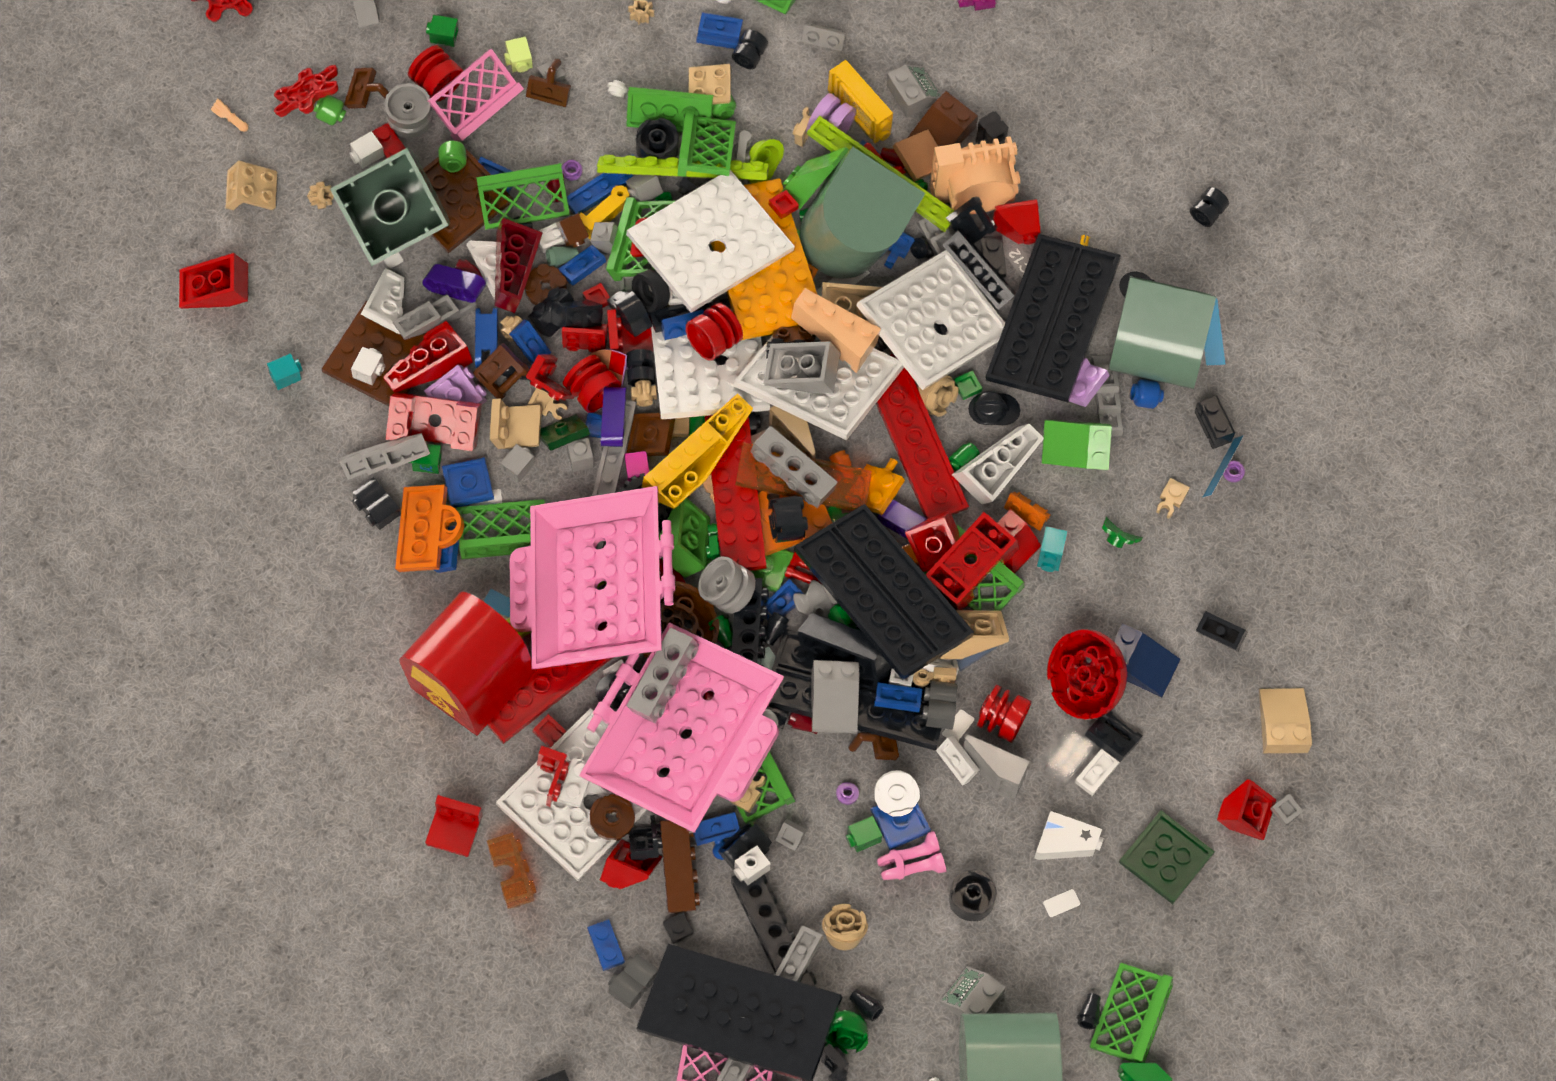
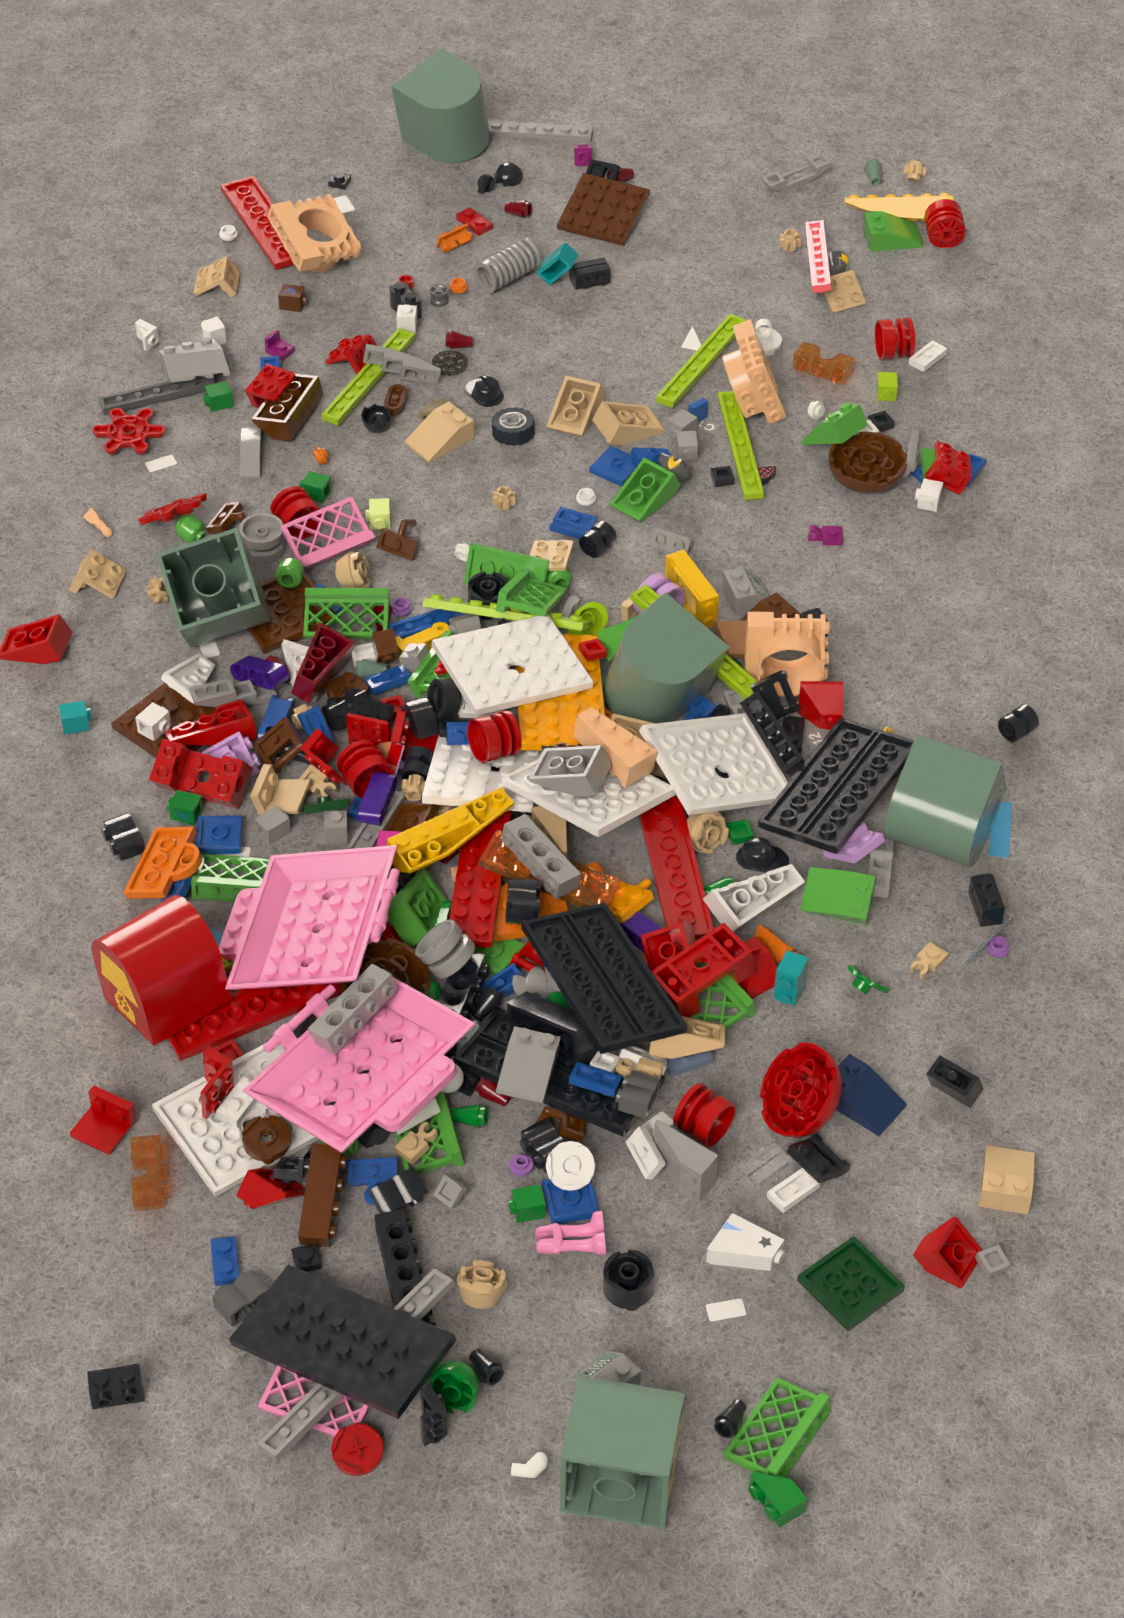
camera: 15 degrees right, 20 degrees down
(269, 23) = (160, 463): none -> white sticker
(384, 455) = (143, 794): light grey slope -> none
(513, 138) = (352, 571): none -> tan cone
(751, 865) = (397, 1204): white brick -> none
(790, 751) = (471, 1115): none -> green cone
(863, 769) = (539, 1142): none -> black brick
(1146, 393) = (921, 866): blue head -> none

